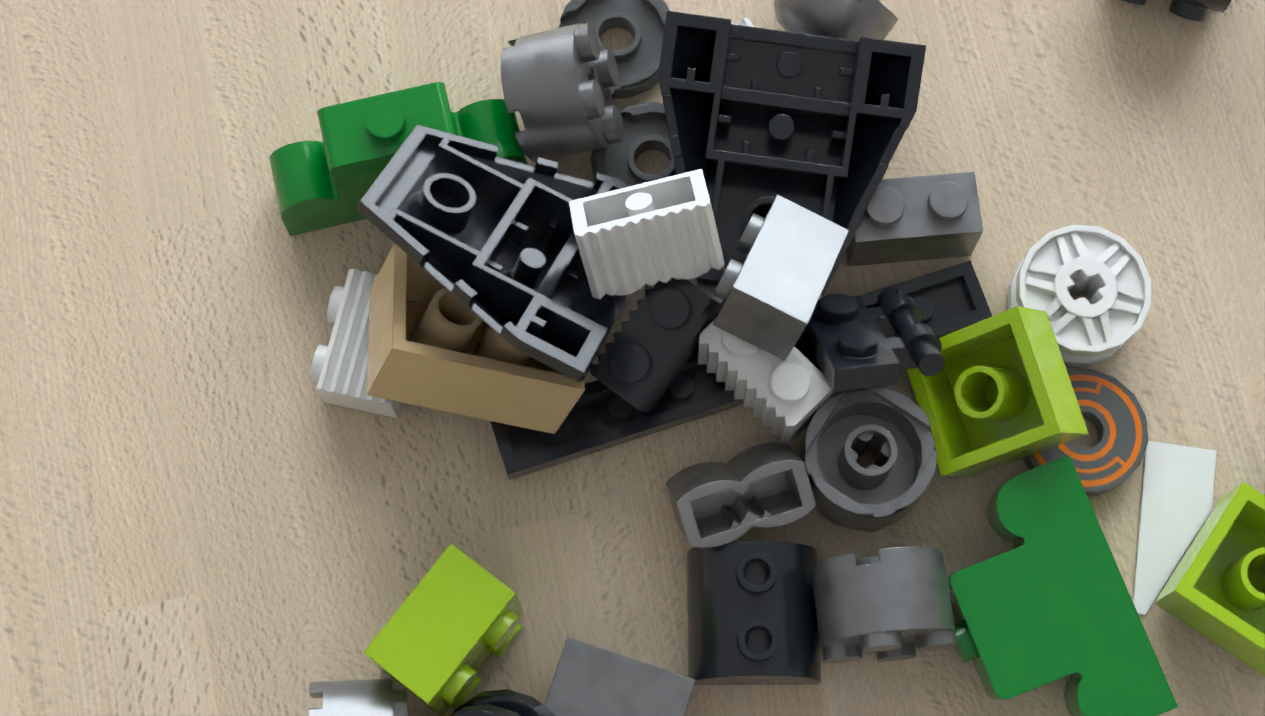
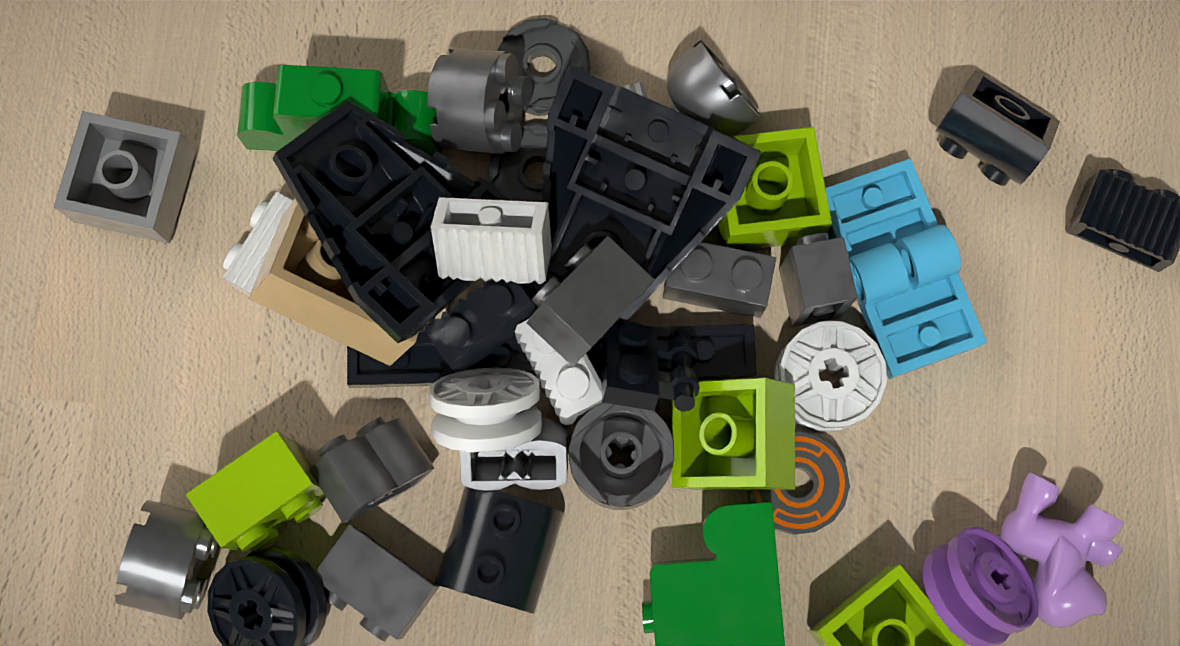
camera: 15 degrees right, 5 degrees up
(158, 305) = (125, 177): none -> light grey brick
(570, 561) = (370, 467): none -> flat silver brick
(692, 447) = (485, 409): none -> white wheel
(883, 604) = (594, 573): flat silver brick -> none
(962, 103) = (782, 195): none -> lime brick
(1030, 185) = (817, 280): none -> flat silver brick
(1118, 146) = (903, 269): none -> medium azure plate
(1173, 509) = (847, 564): white sticker -> none

